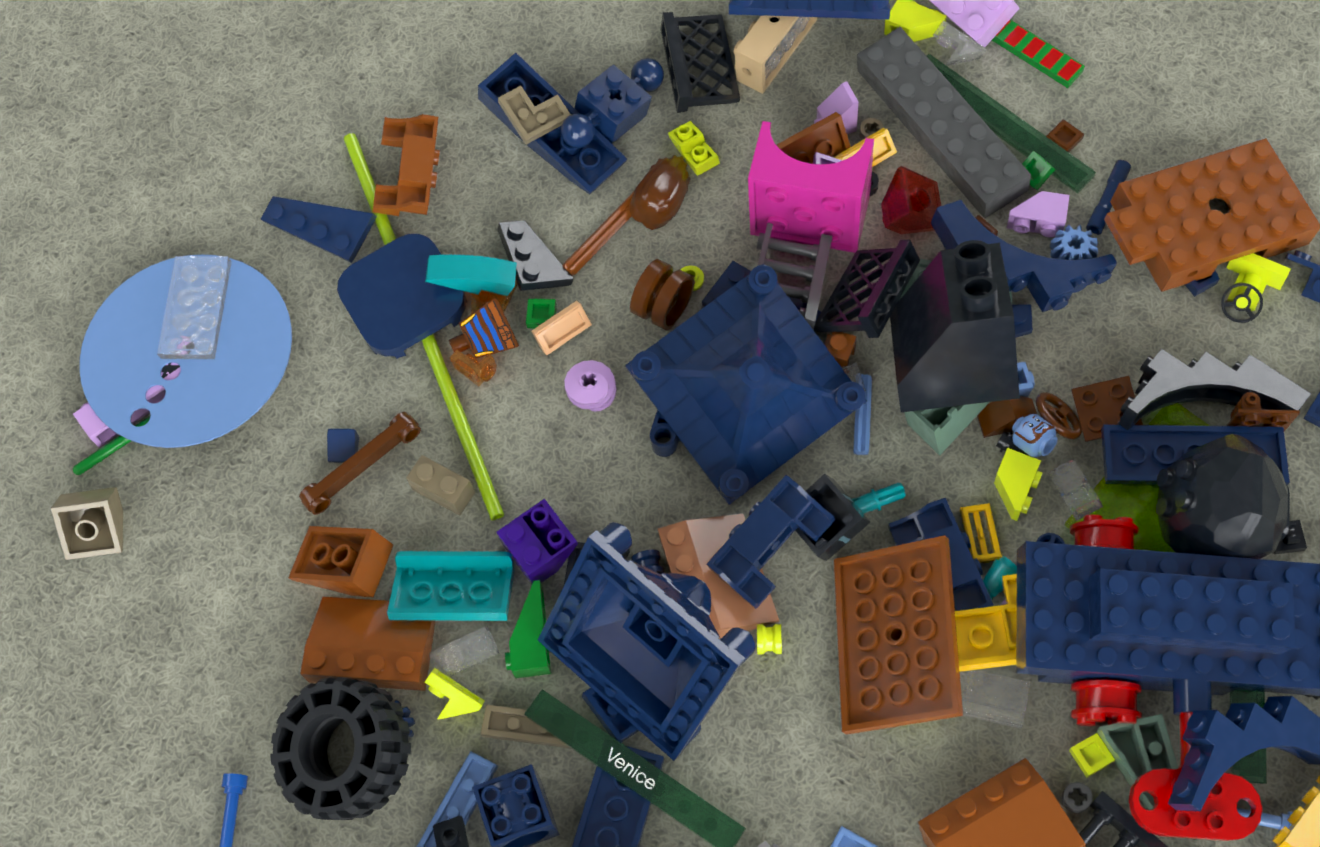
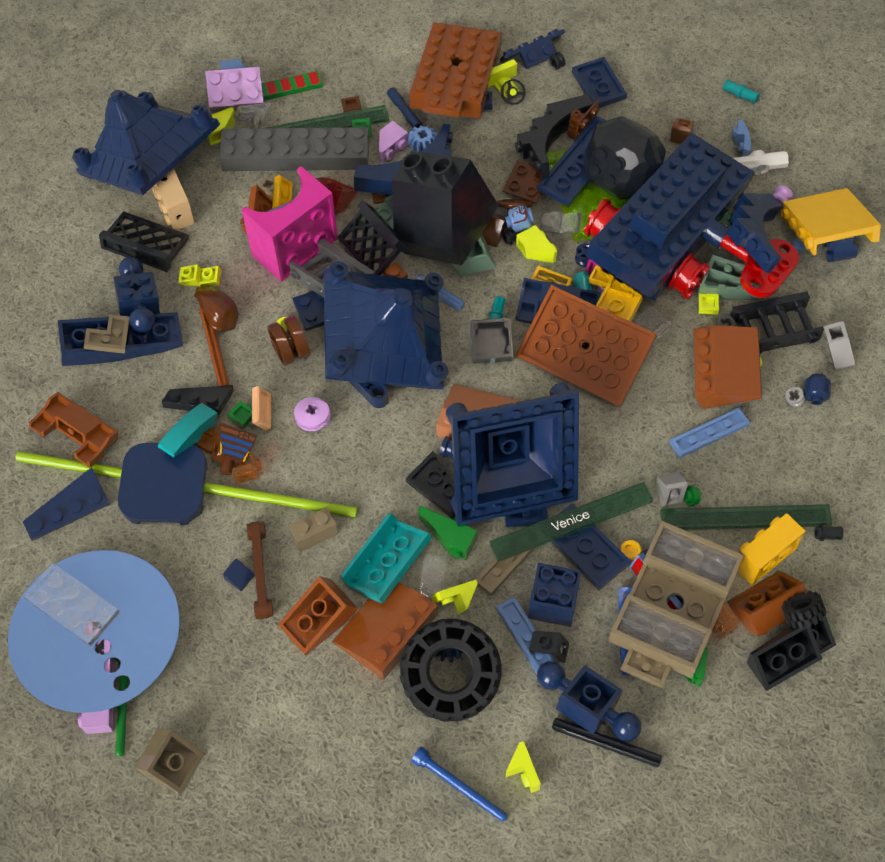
camera: 65 degrees left, 5 degrees down
(538, 542) = (393, 494): dark purple slope -> none
(763, 534) = (480, 365): dark blue bracket -> none
(844, 103) = (244, 182): lavender slope -> none

